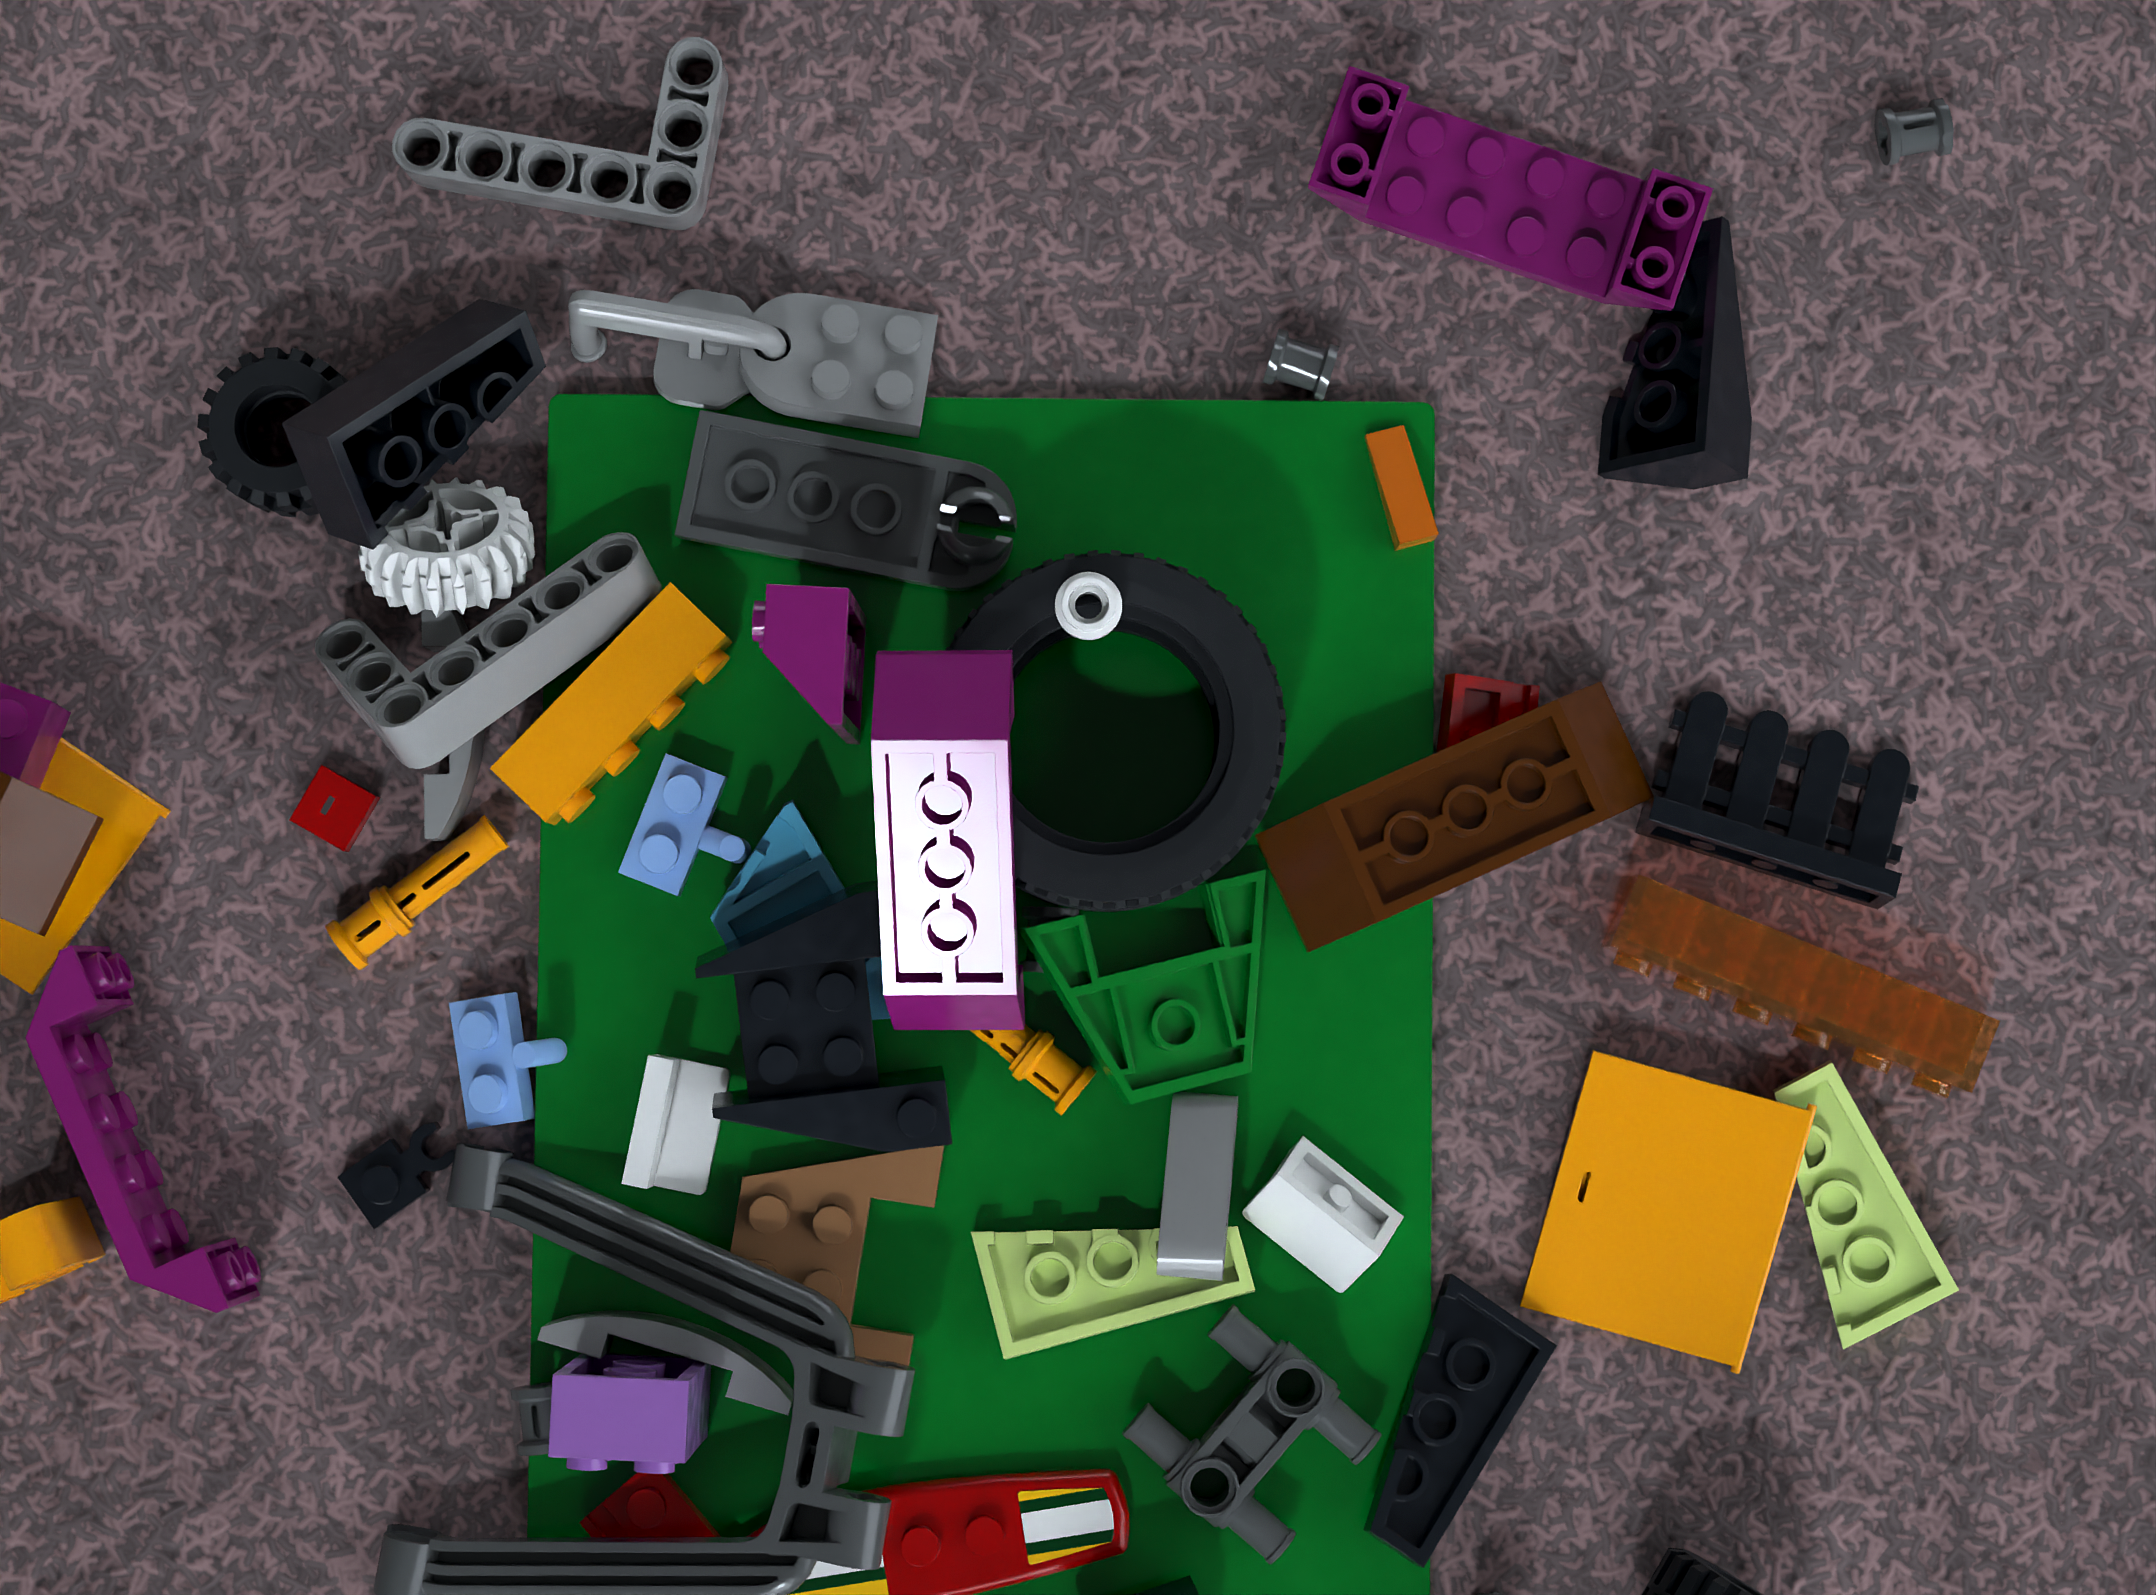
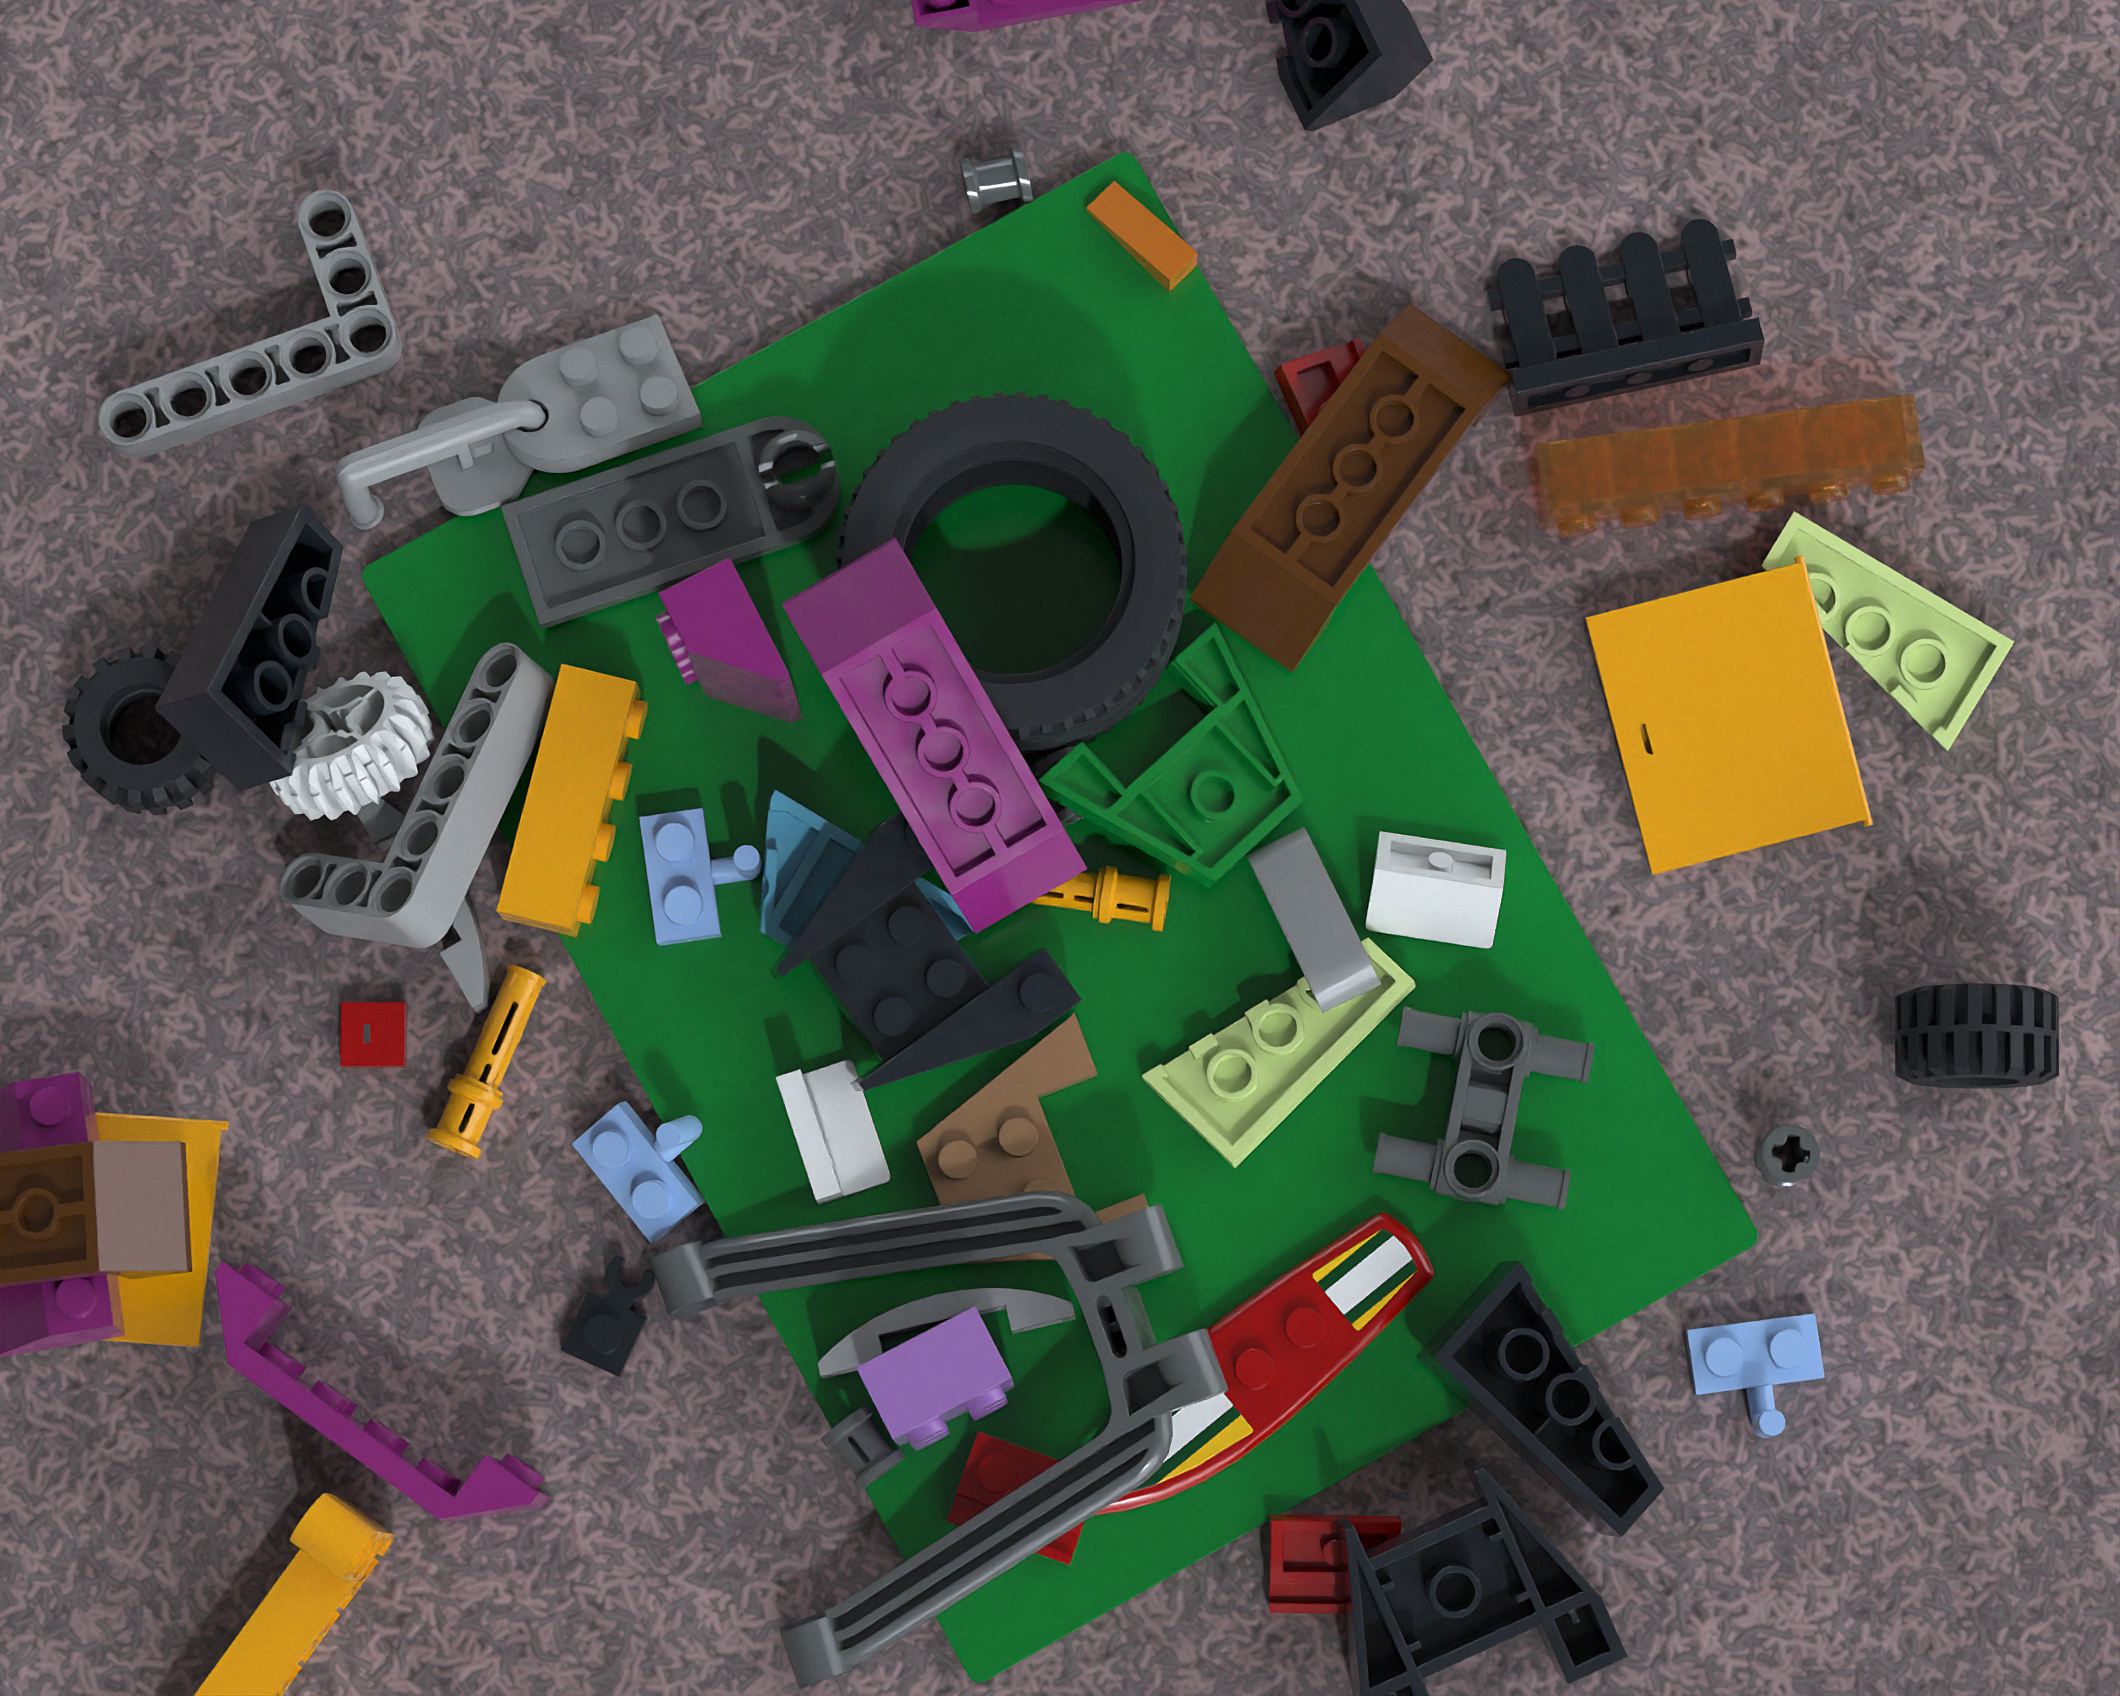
camera: 30 degrees left, 5 degrees down
(1088, 584) = (931, 447): white plate -> none
(1456, 1409) = (1646, 984): black wing -> none

